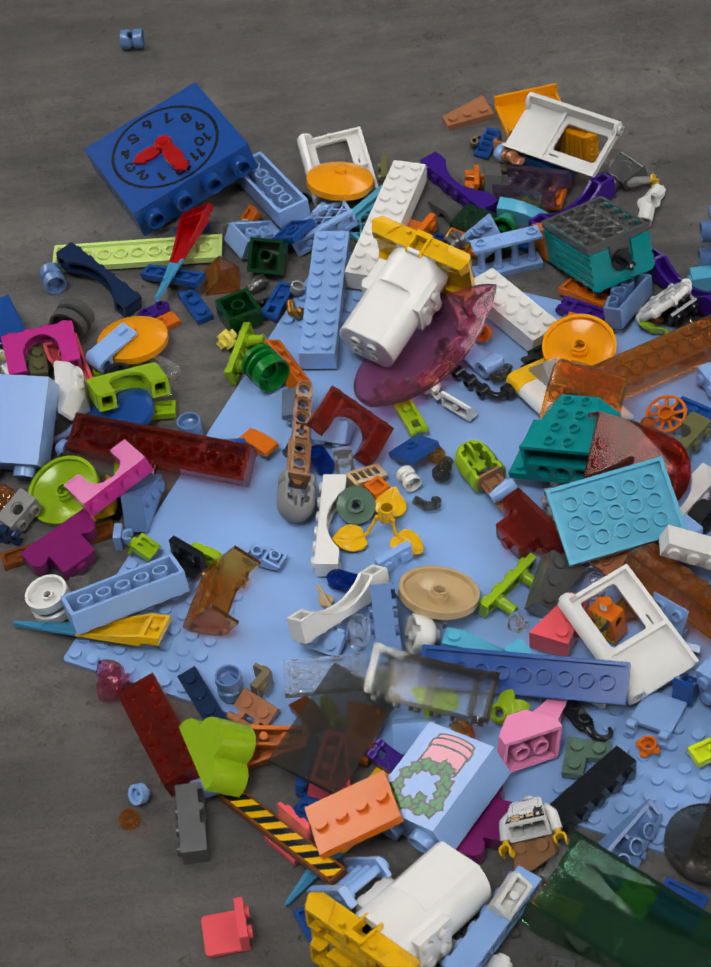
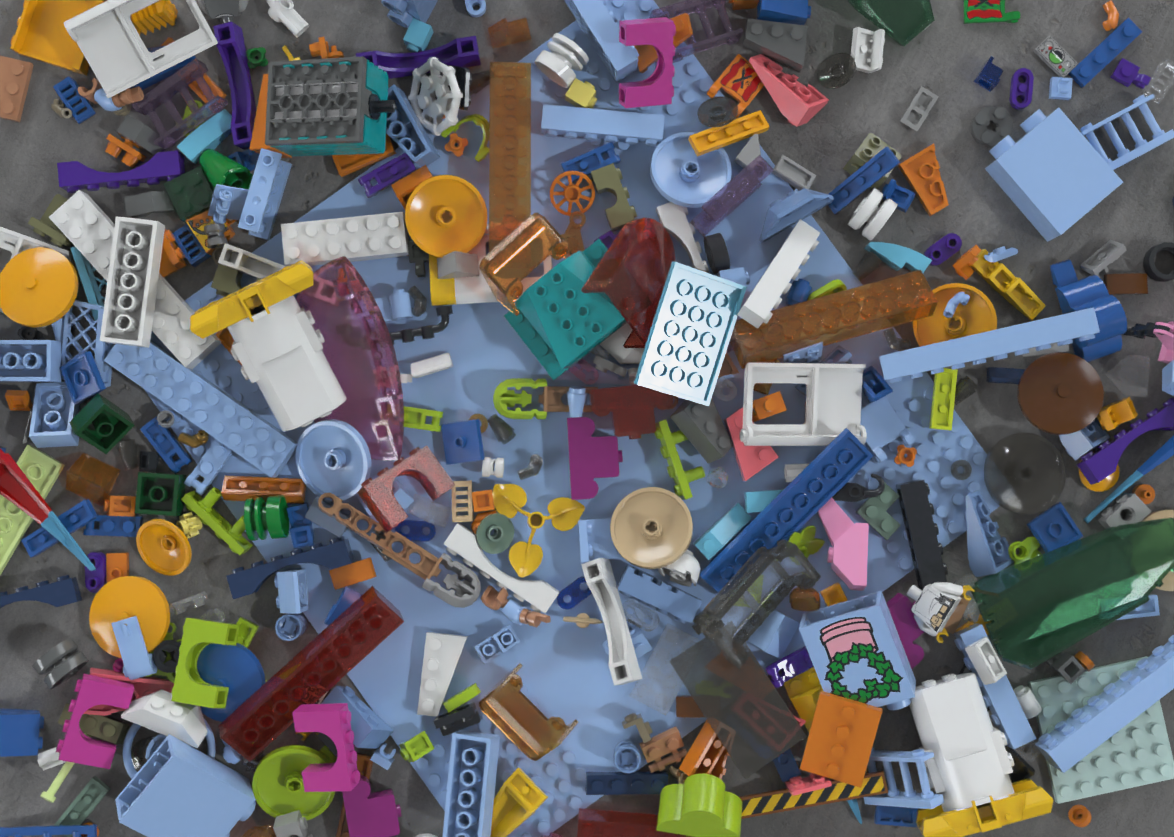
camera: 60 degrees left, 40 degrees up
(200, 331) = (163, 547): none -> light orange dish
(209, 296) = (119, 505): none -> orange bracket
(209, 387) = (249, 581): none -> dark blue arch
(220, 413) = (292, 591): none -> light blue slope
(222, 529) = (439, 663): none -> white wing
(270, 398) = (301, 527): none -> blue slope
(278, 328) = (209, 466): none -> light blue plate
(301, 547) = (511, 609): none -> nougat piece
(347, 373) = (333, 459): none -> light blue dish
(397, 202) = (132, 282): none -> white brick
(466, 532) = (590, 457): none -> magenta brick
(537, 493) = (581, 376): none -> clear pink beam
(640, 335) = (462, 142): none -> orange plate
(670, 789) = (967, 470): none -> clear smoke plate

